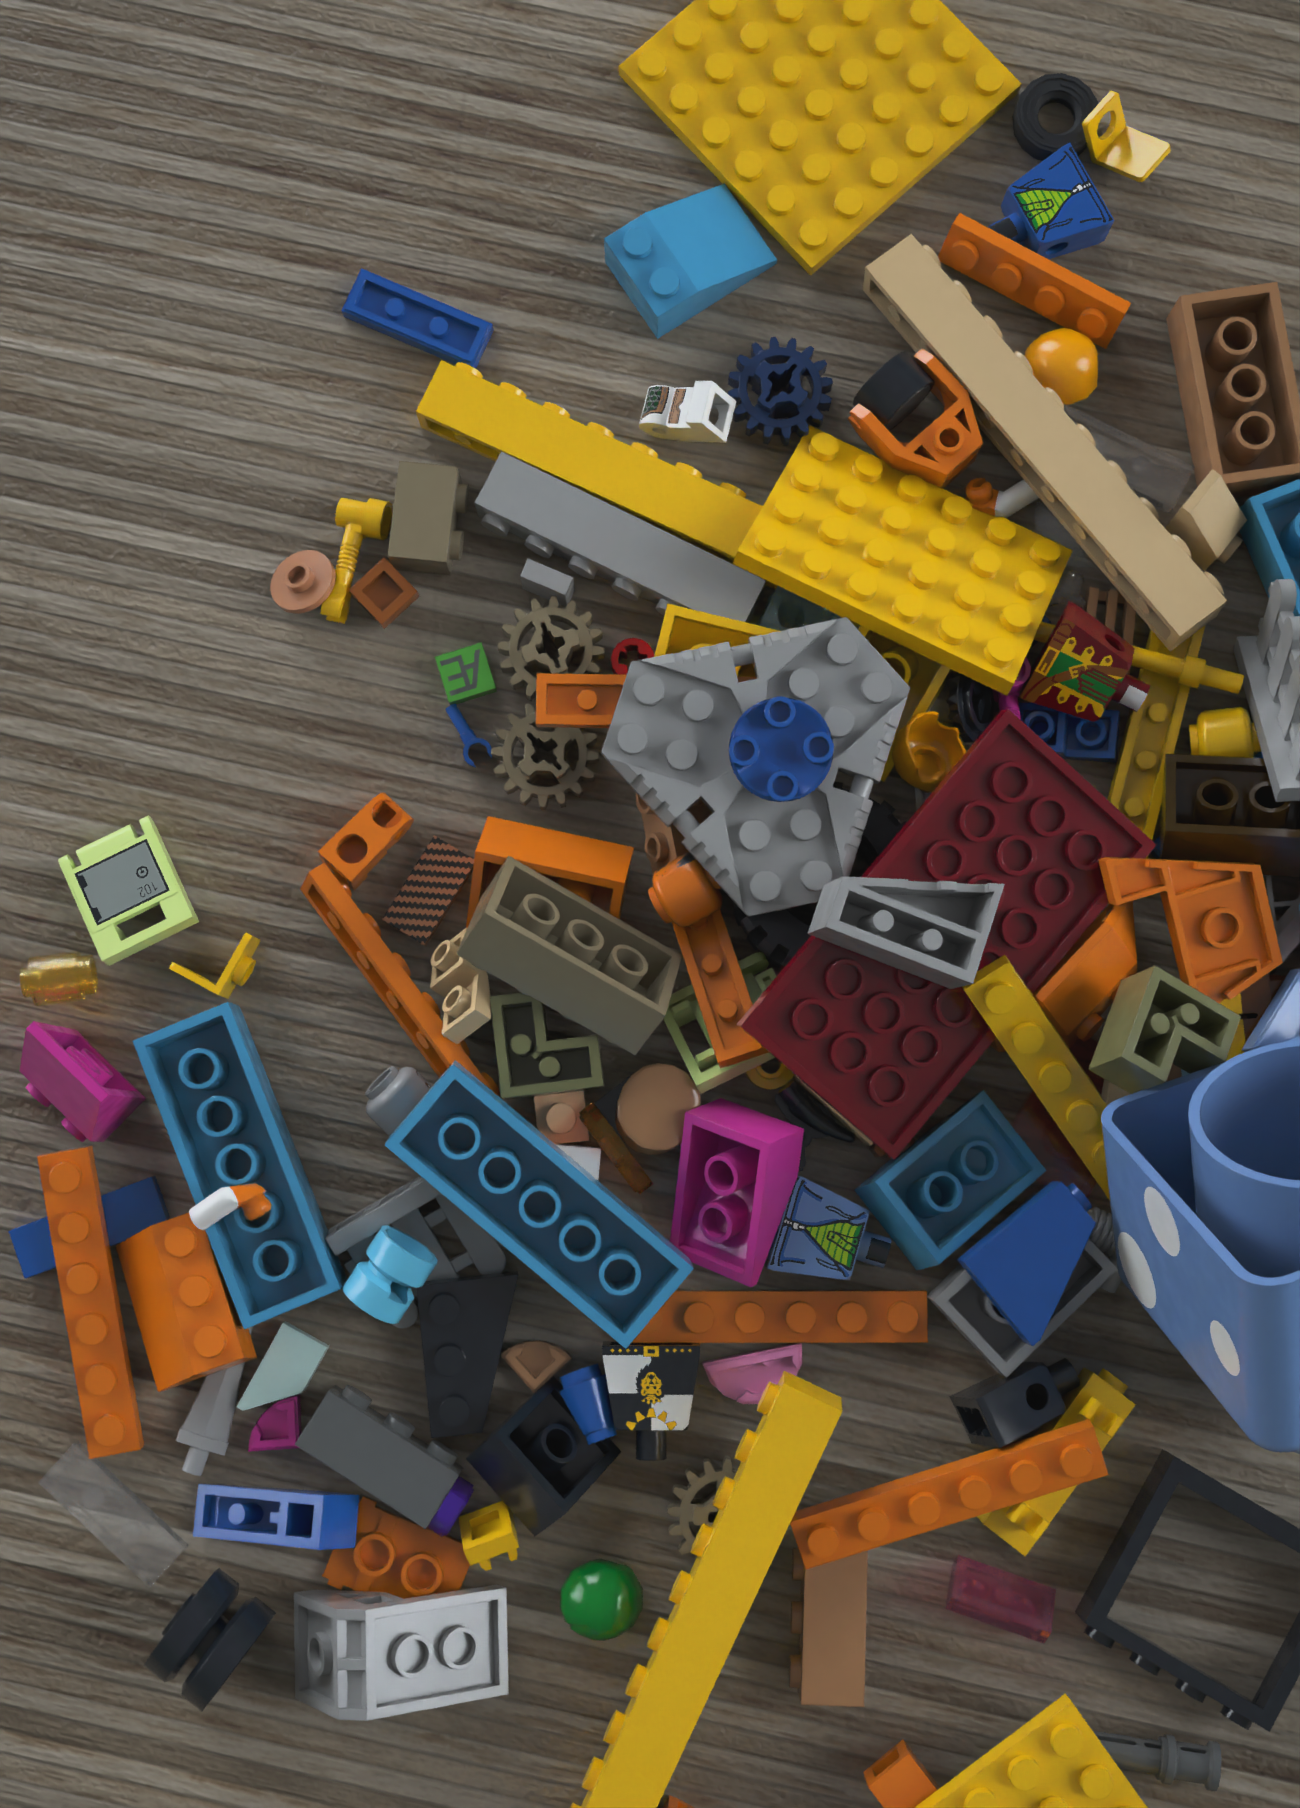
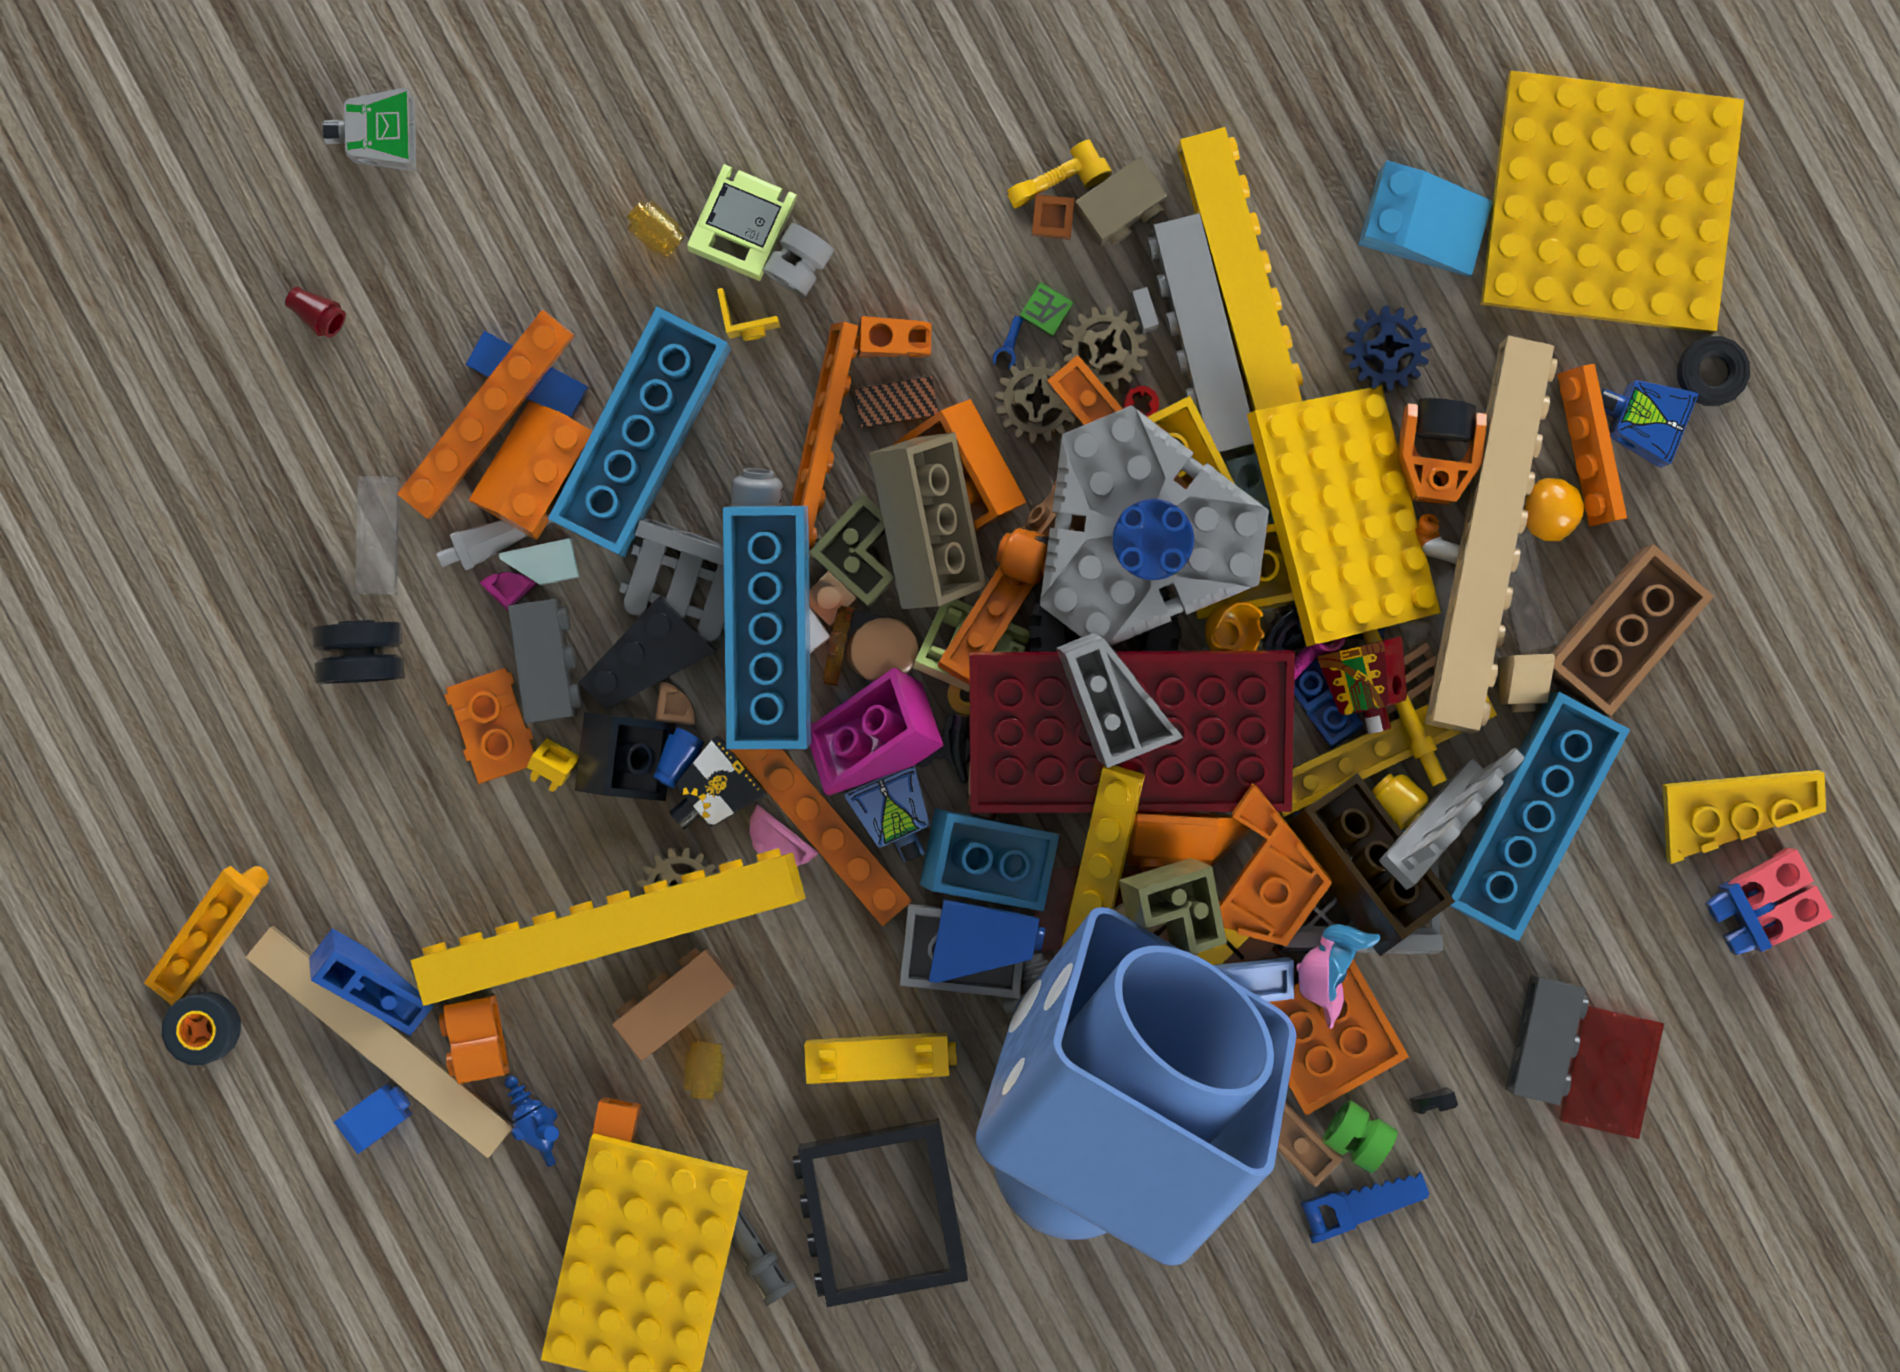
camera: 50 degrees right, 5 degrees up
(76, 1081) = (605, 294): dark pink slope -> none
(213, 849) = (806, 248): none -> light grey wheel
(228, 1199) = (614, 444): arm -> none
(277, 1516) = (457, 631): blue slope -> none
(302, 581) = (1017, 162): nougat piece -> none
(386, 1280) = (651, 576): medium azure wheel -> none
(396, 1655) = (443, 767): light grey bracket -> none
(417, 319) = (1241, 87): blue tile -> none
(451, 1507) = (549, 728): dark purple tile -> none
(464, 990) = (854, 475): tan slope -> none
(601, 1599) = (571, 861): green hair -> none
(685, 412) = (1321, 304): white leg -> none
(922, 1647) = (704, 1070): none -> clear yellow brick
(948, 1494) = (803, 1006): orange plate -> none
(1001, 1599) = (770, 1092): clear pink plate -> none
(1010, 1407) = (877, 998): black torso -> none
(1122, 147) = (1729, 428): yellow bracket -> none

